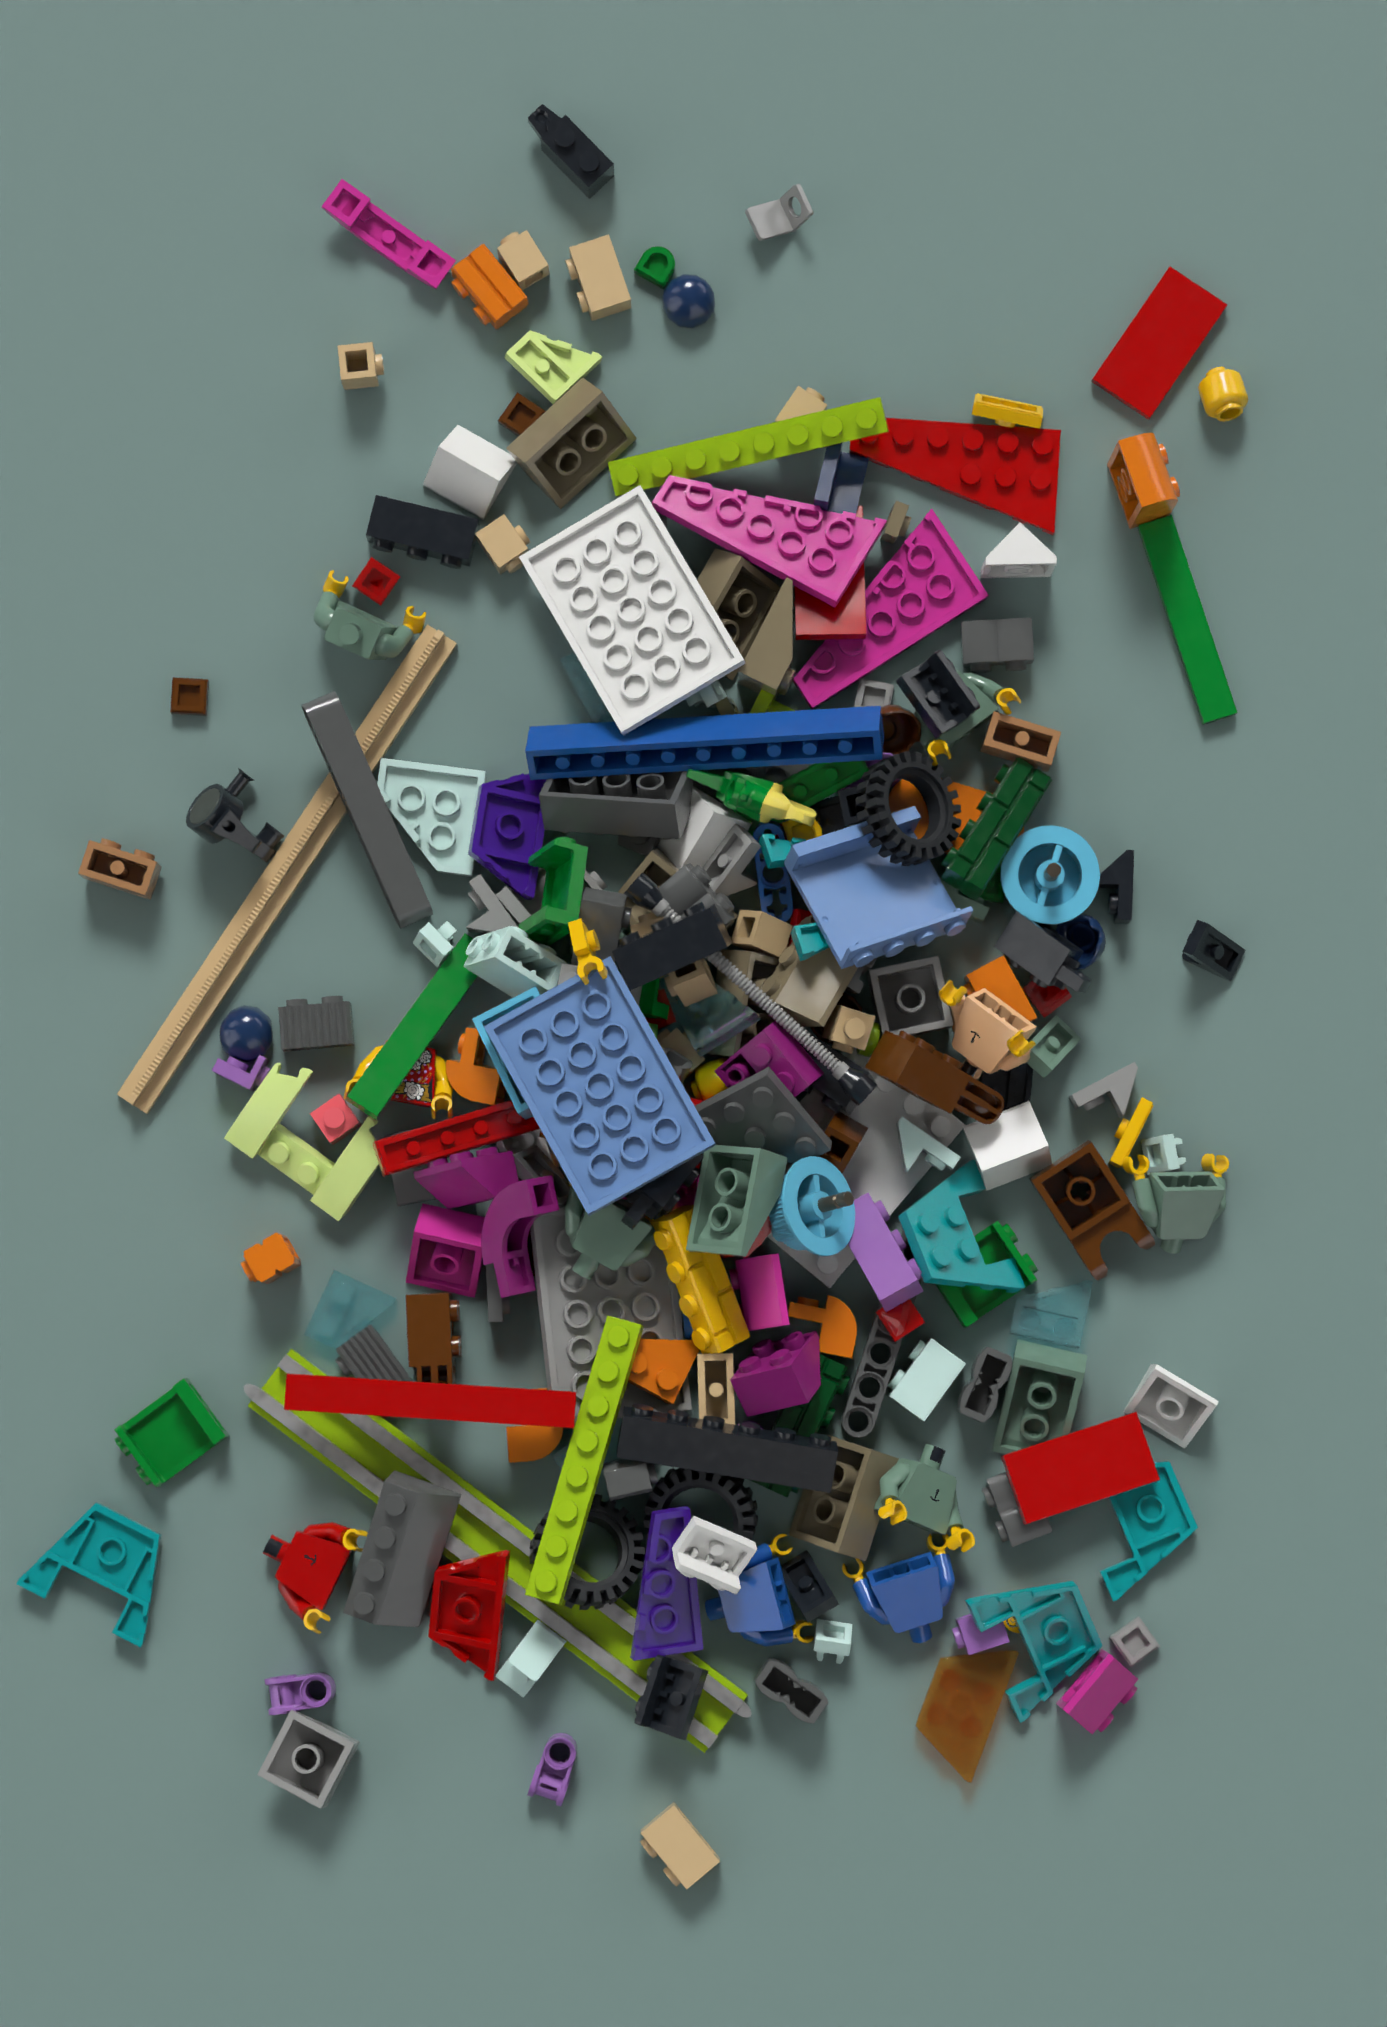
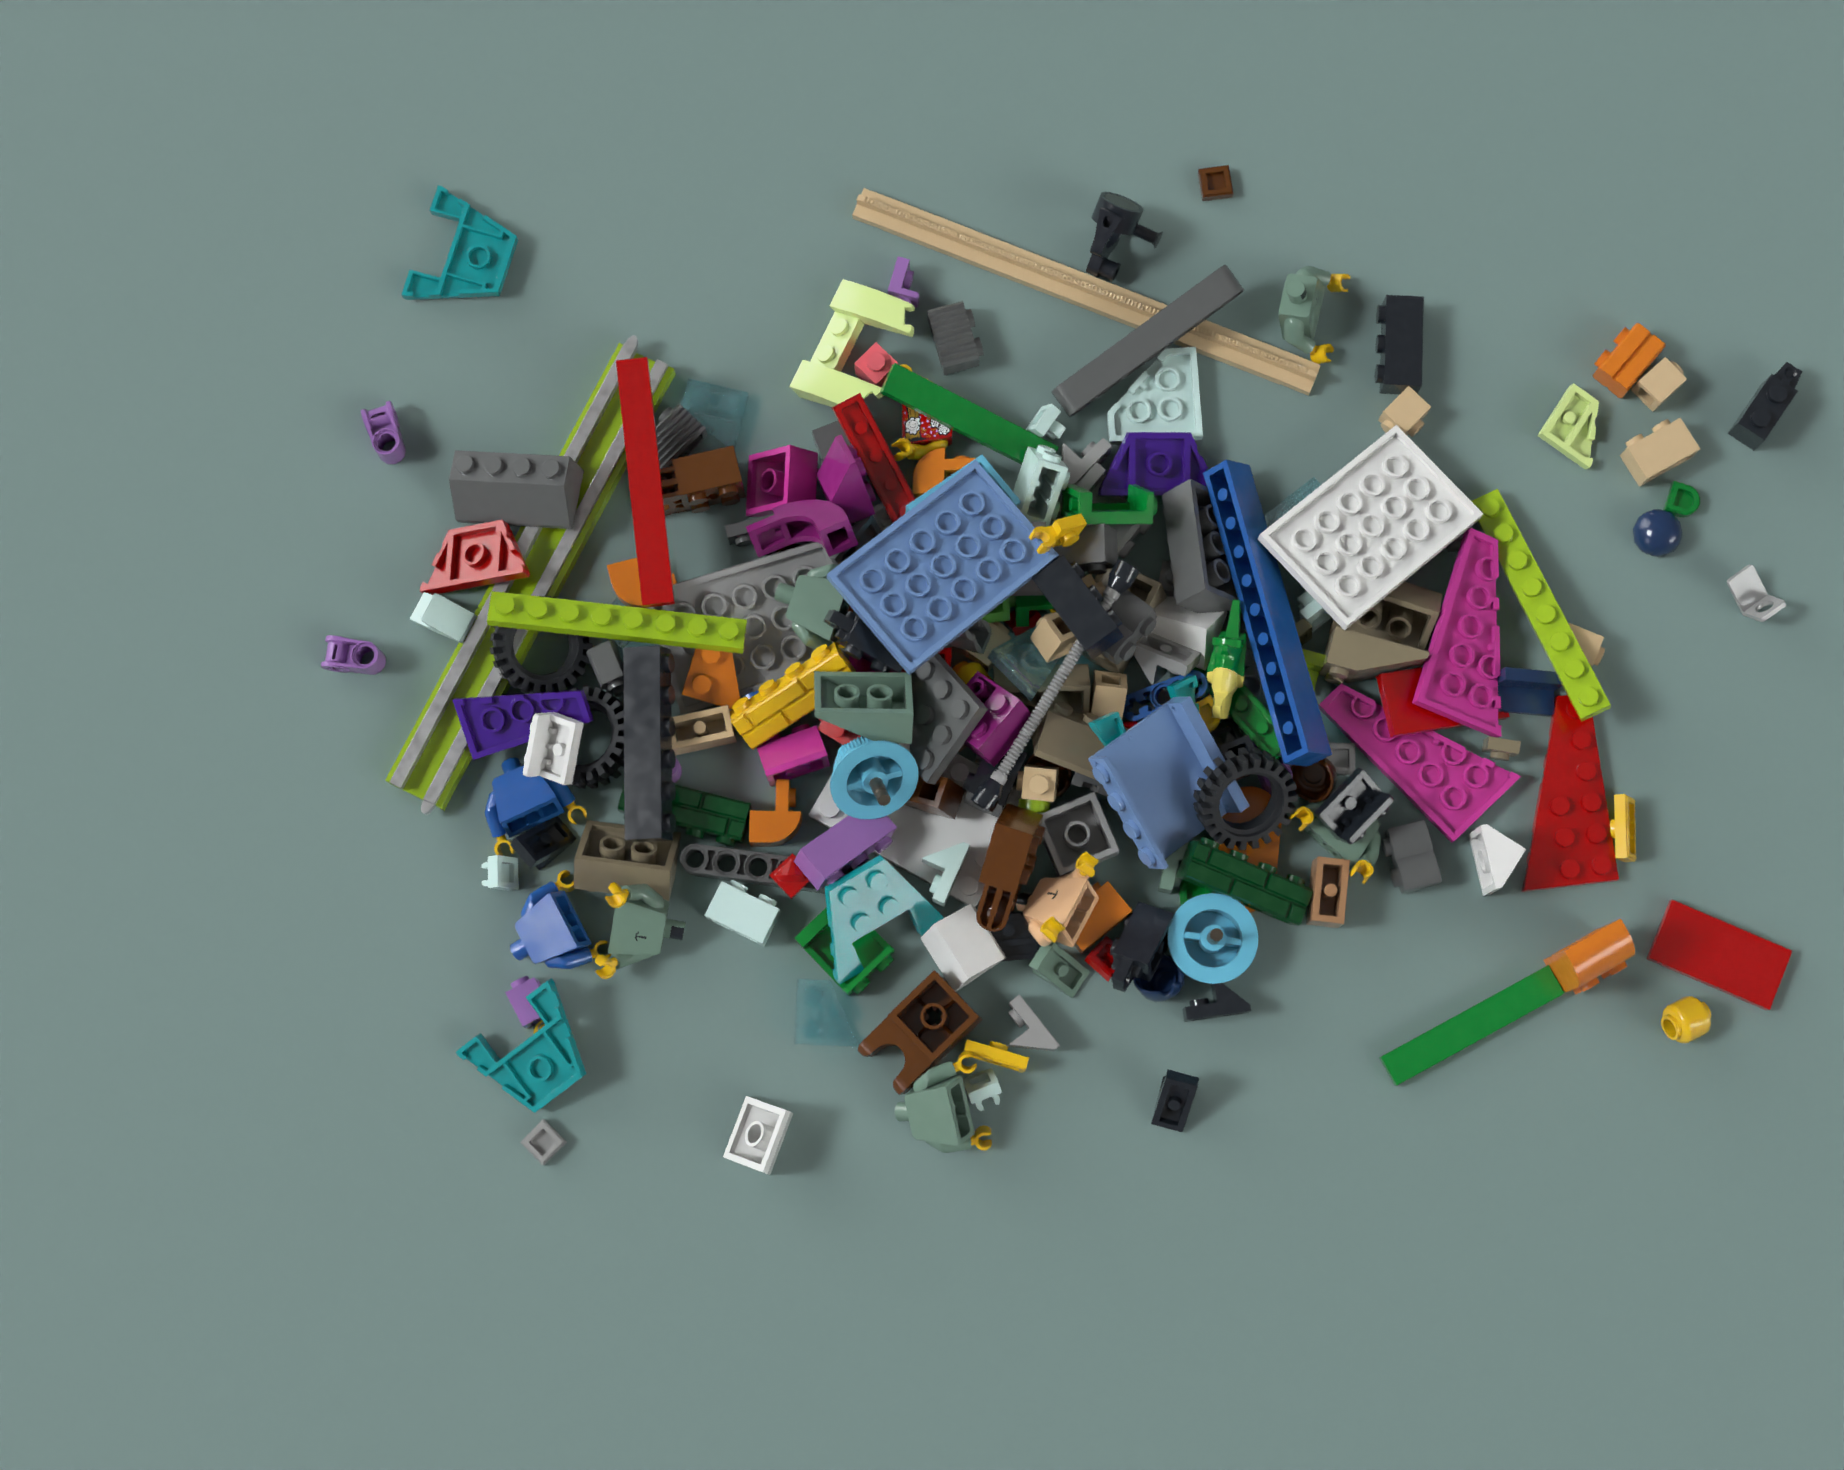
camera: 85 degrees right, 5 degrees down
(120, 869) = (1054, 151): medium nougat brick -> none
(170, 1433) = (584, 286): green panel -> none
(246, 1033) = (936, 283): dark blue hair -> none
(269, 1260) = (746, 335): orange brick -> none
(308, 1758) = (327, 448): light grey slope -> none
(312, 1567) = (489, 421): red torso -> none
(359, 365) = (1533, 262): tan brick -> none
(376, 581) = (1349, 315): red tile -> none
(387, 235) = (1654, 265): dark pink slope -> none
(469, 471) = (1463, 375): white slope -> none
(520, 414) = (1520, 411): reddish brown tile -> none
(571, 442) = (1507, 455): dark tan slope -> none
(670, 1696) = (427, 737): black bracket -> none
(679, 1846) = (301, 773): tan brick -> none
(779, 1373) = (723, 779): magenta slope -> none
(800, 1696) = (454, 835): dark grey brick -> none
(964, 1705) = (462, 999): clear orange wing -> none
(980, 1394) = (756, 965): dark grey brick -> none
(1011, 1526) = (645, 1015): dark grey brick -> none
(1039, 1396) = (740, 1017): sand green slope -> none
(1080, 1468) = (686, 1061): red tile -> none
(1098, 1692) = (490, 1114): dark pink slope -> none
(1154, 1524) = (663, 1131): teal wing -> none

